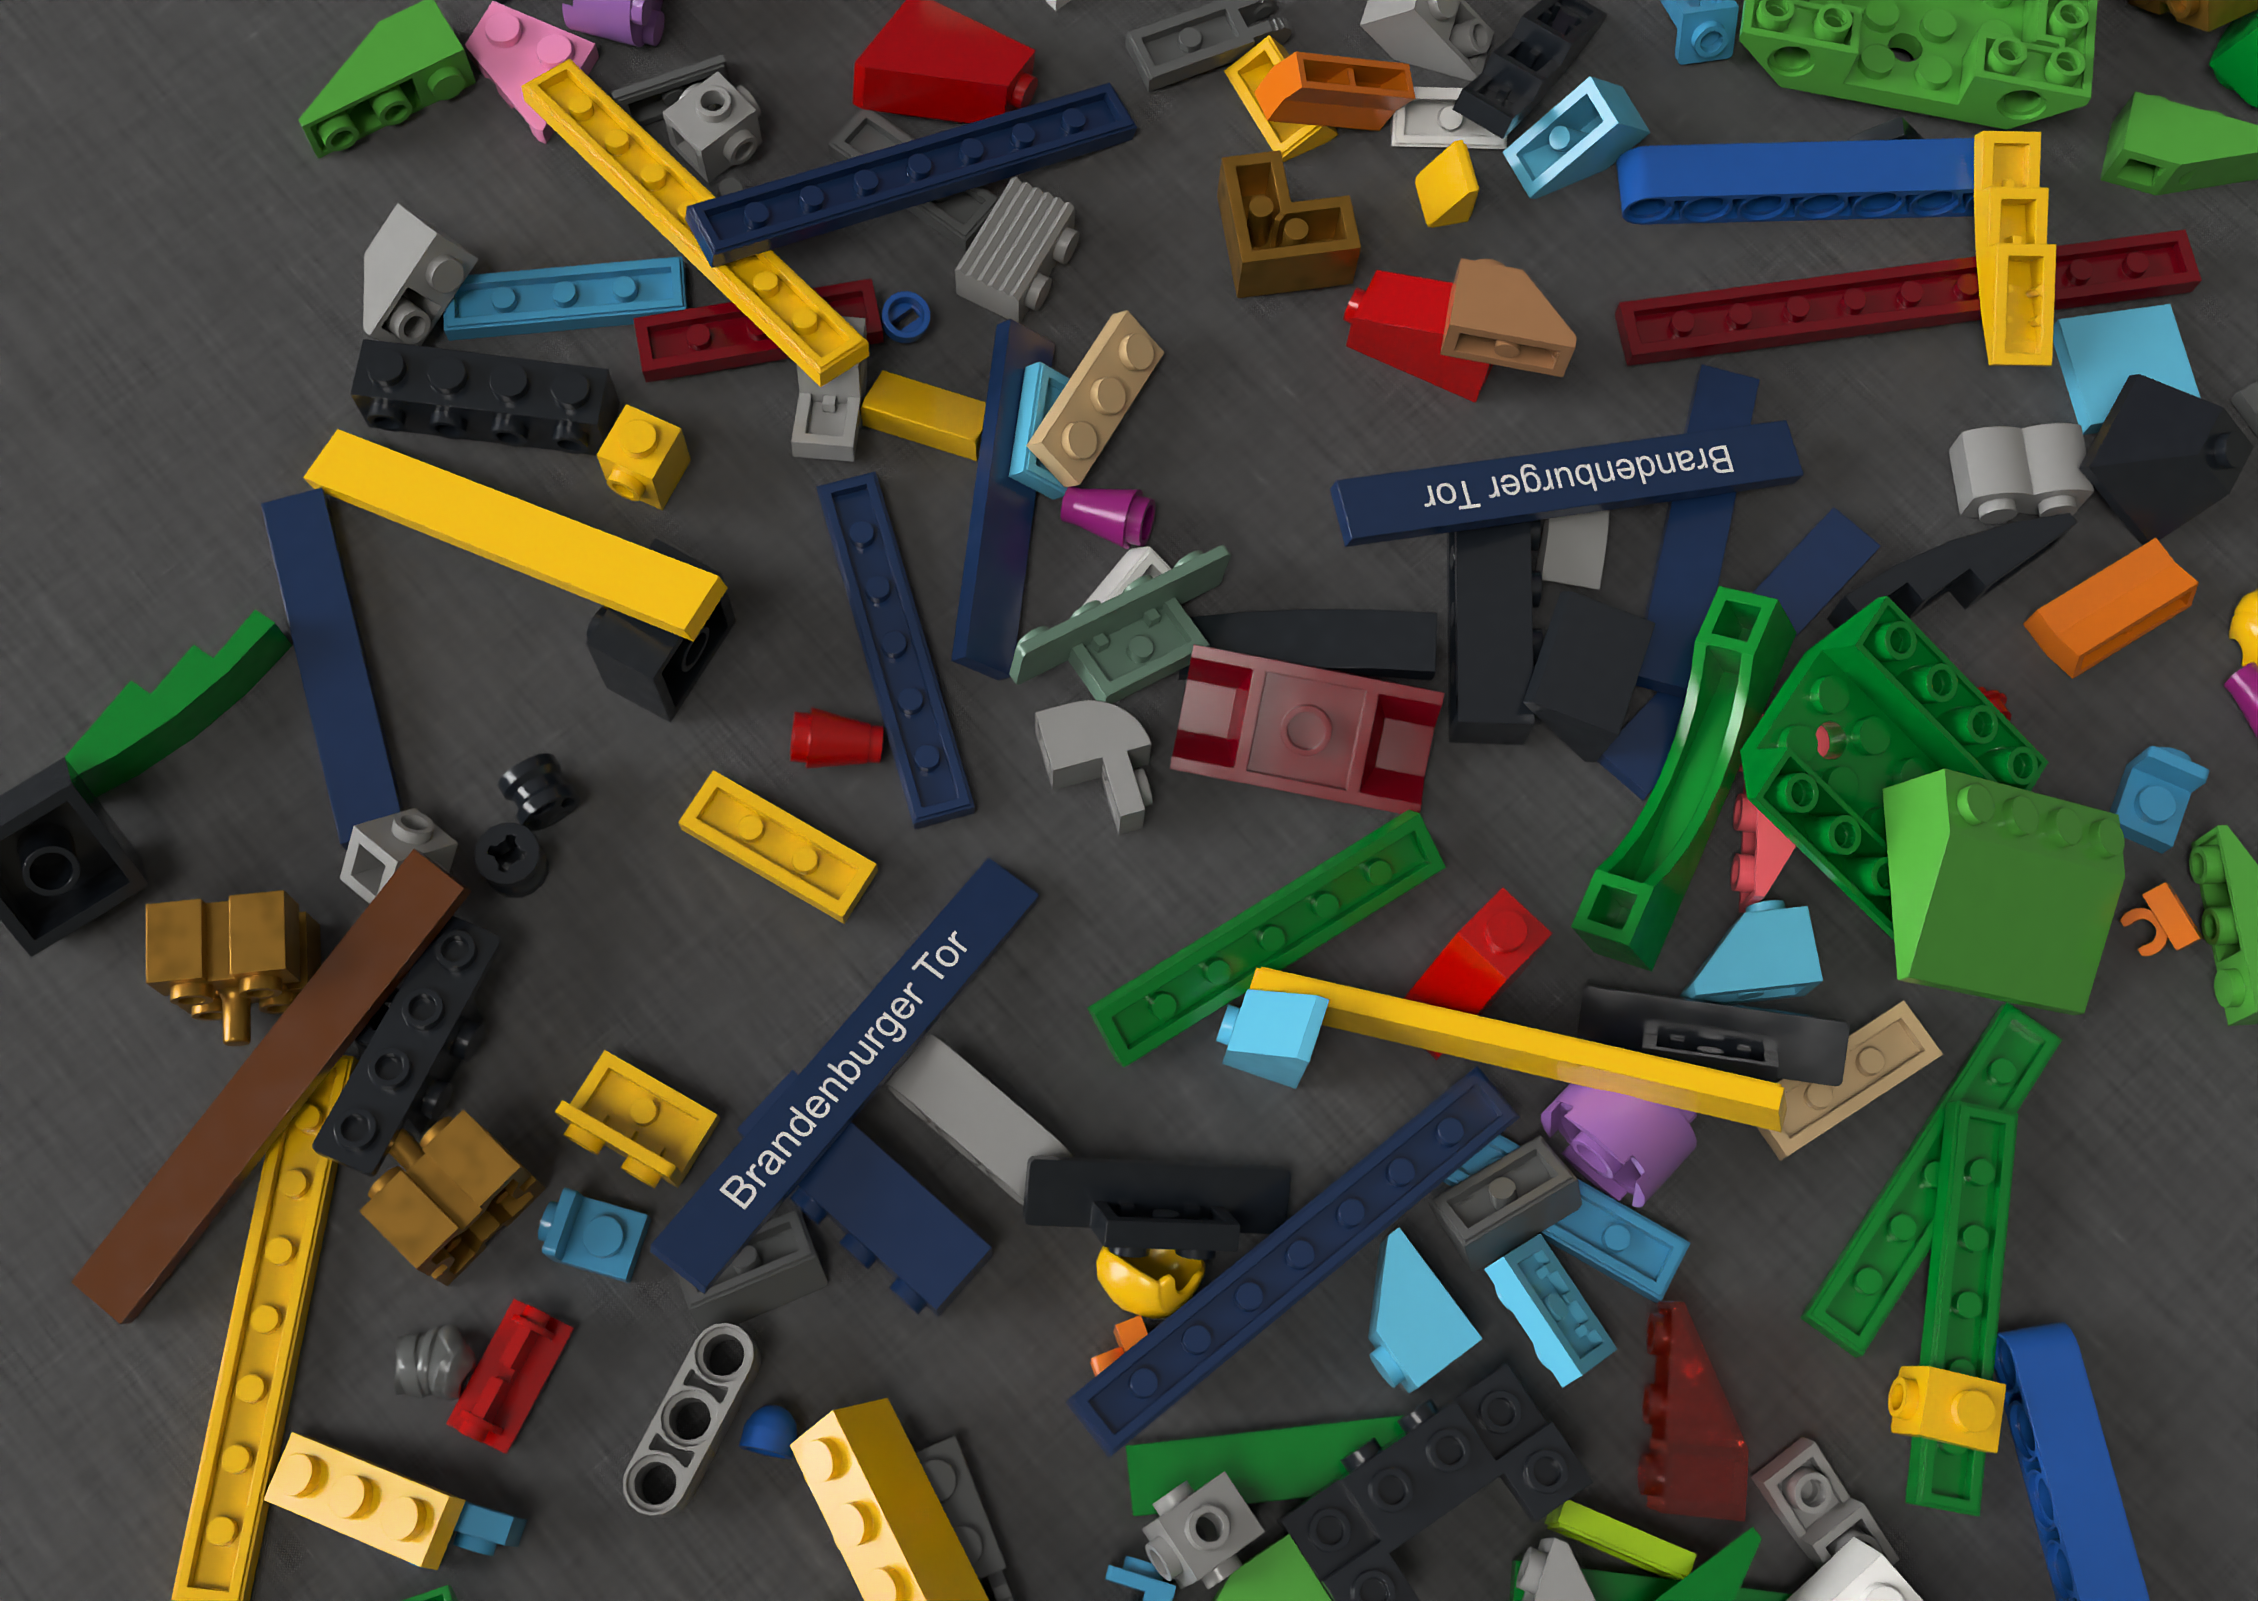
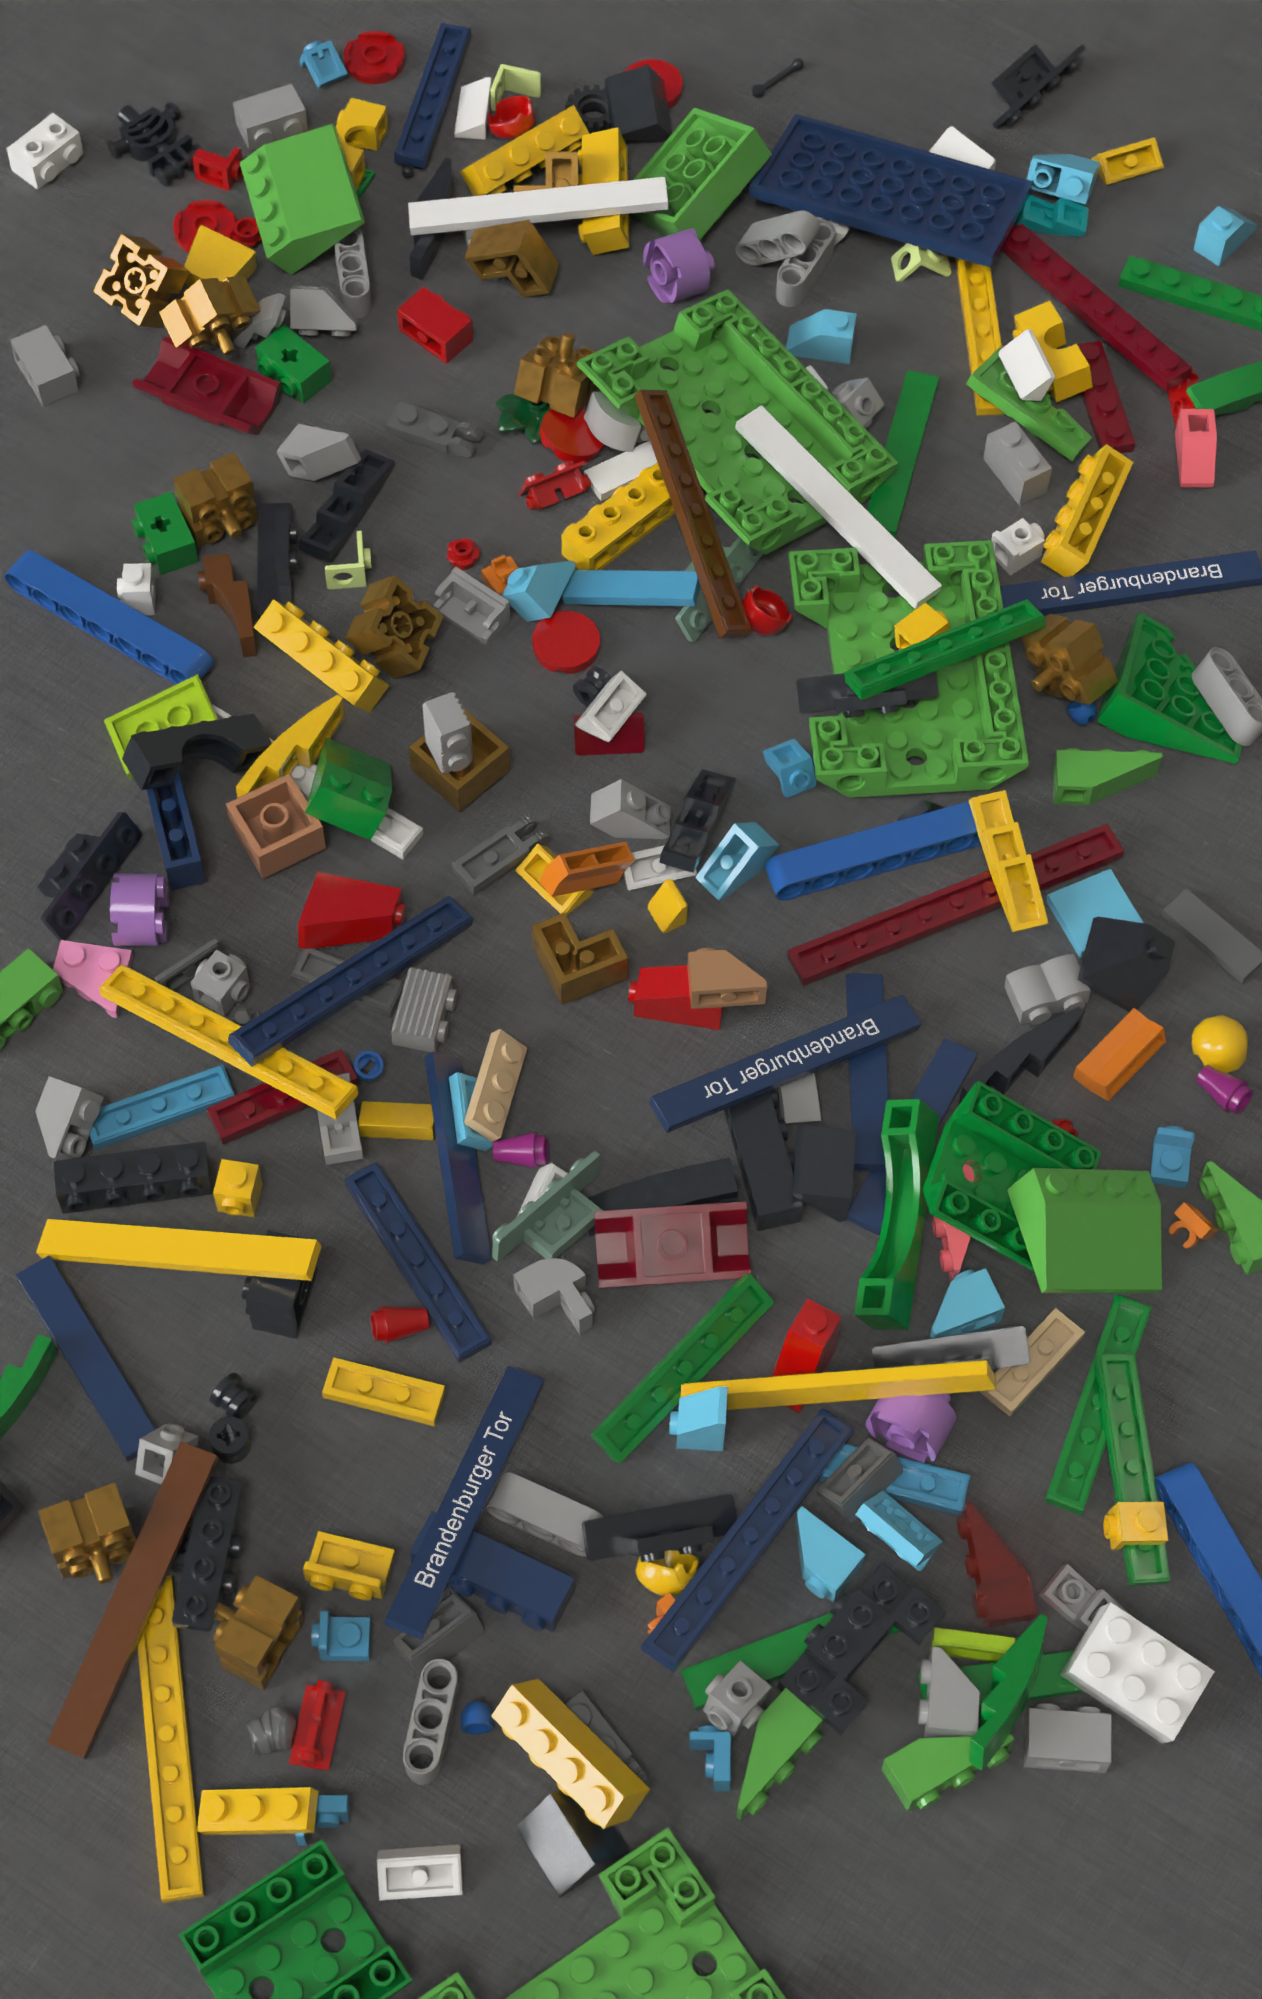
camera: 10 degrees left, 10 degrees down
(2185, 45) = (1081, 712): none -> blue hinge

